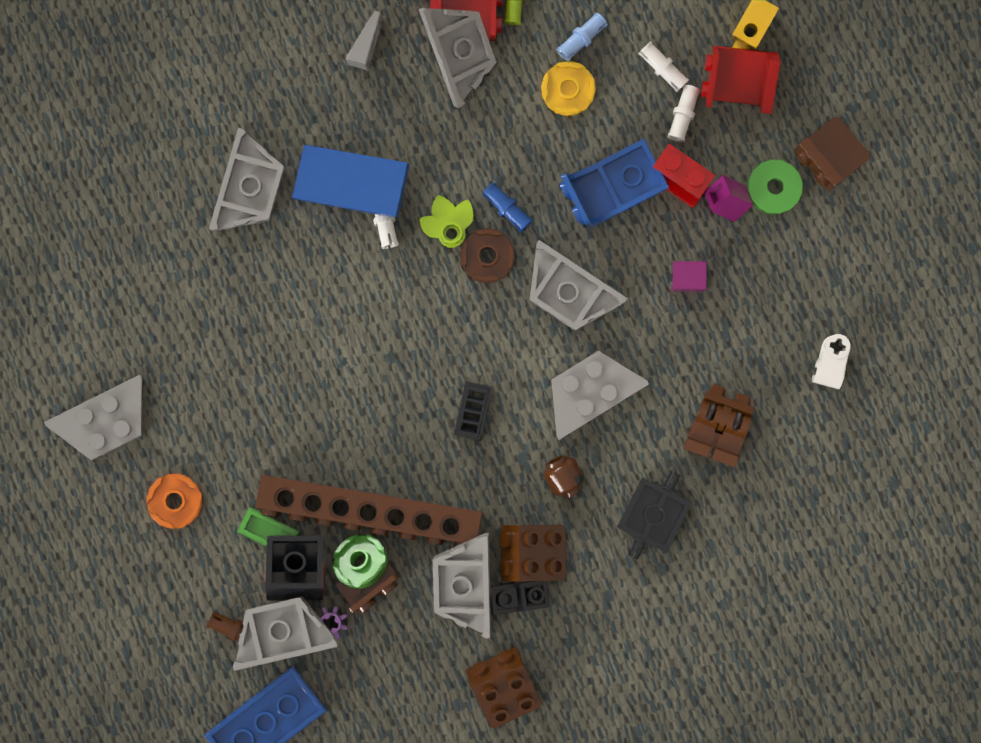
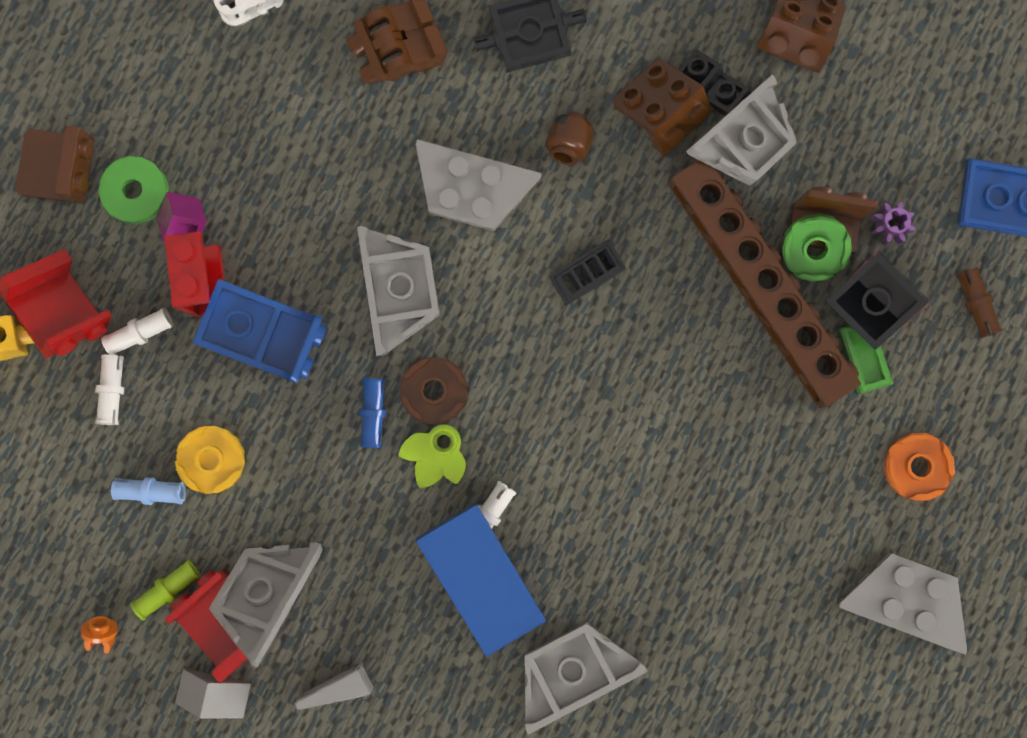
camera: 135 degrees left, 0 degrees up
(281, 632) = (948, 254): light grey wing -> none
(689, 276) = (285, 188): magenta panel -> none

